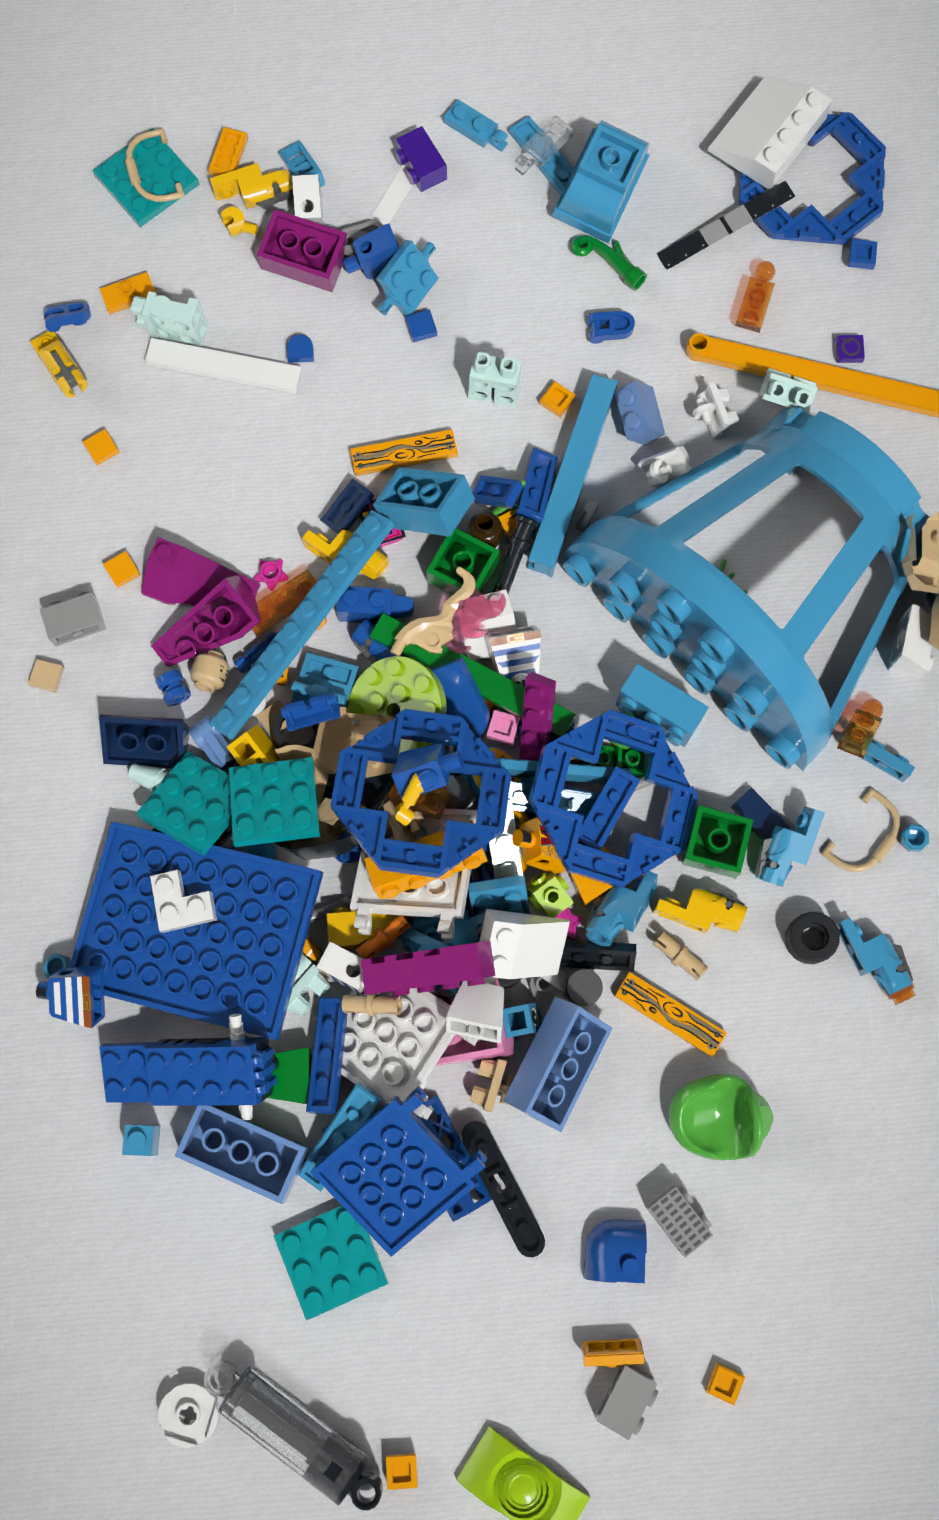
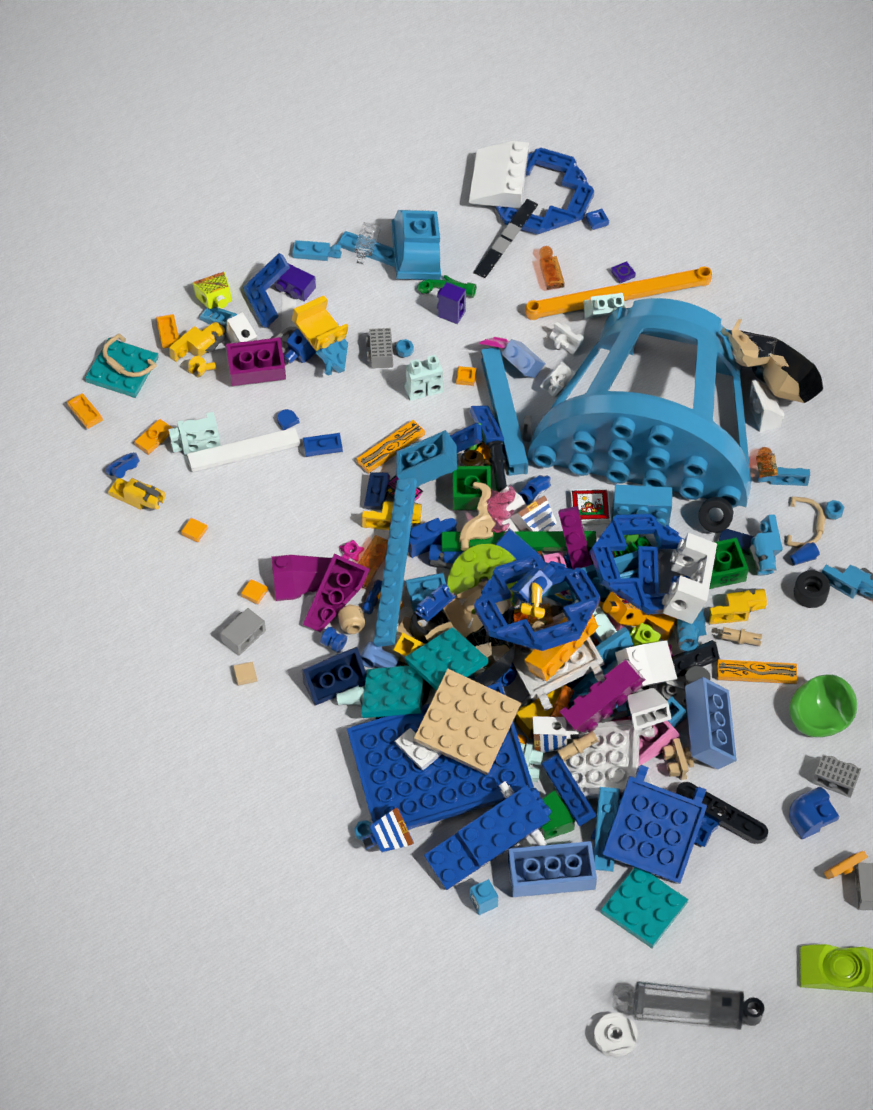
camera: 30 degrees left, 20 degrees down
(66, 216) = (85, 411): none -> light orange plate
(242, 906) = (467, 721): none -> tan plate
(314, 124) = (213, 291): none -> neon yellow torso
(320, 408) = (322, 444): none -> blue plate
(367, 146) = (257, 286): none -> blue plate
(398, 239) = (318, 324): none -> yellow panel
(401, 1471) = (766, 994): light orange plate -> none
(421, 326) = (355, 373): blue tile -> none
(471, 306) = (380, 348): none -> light grey brick
(502, 321) = (404, 348): none -> dark azure tile
(542, 608) = (535, 488): none -> blue rock
(595, 286) = (451, 302): none -> dark purple brick
(601, 666) = (592, 505): none -> tile
(619, 323) = (477, 318): blue plate -> none
(619, 372) = (496, 342): none -> dark pink piece
(676, 830) = (688, 596): none -> white plate
(740, 778) = (707, 523): none -> black tyre
(835, 882) = (805, 554): none -> blue cone

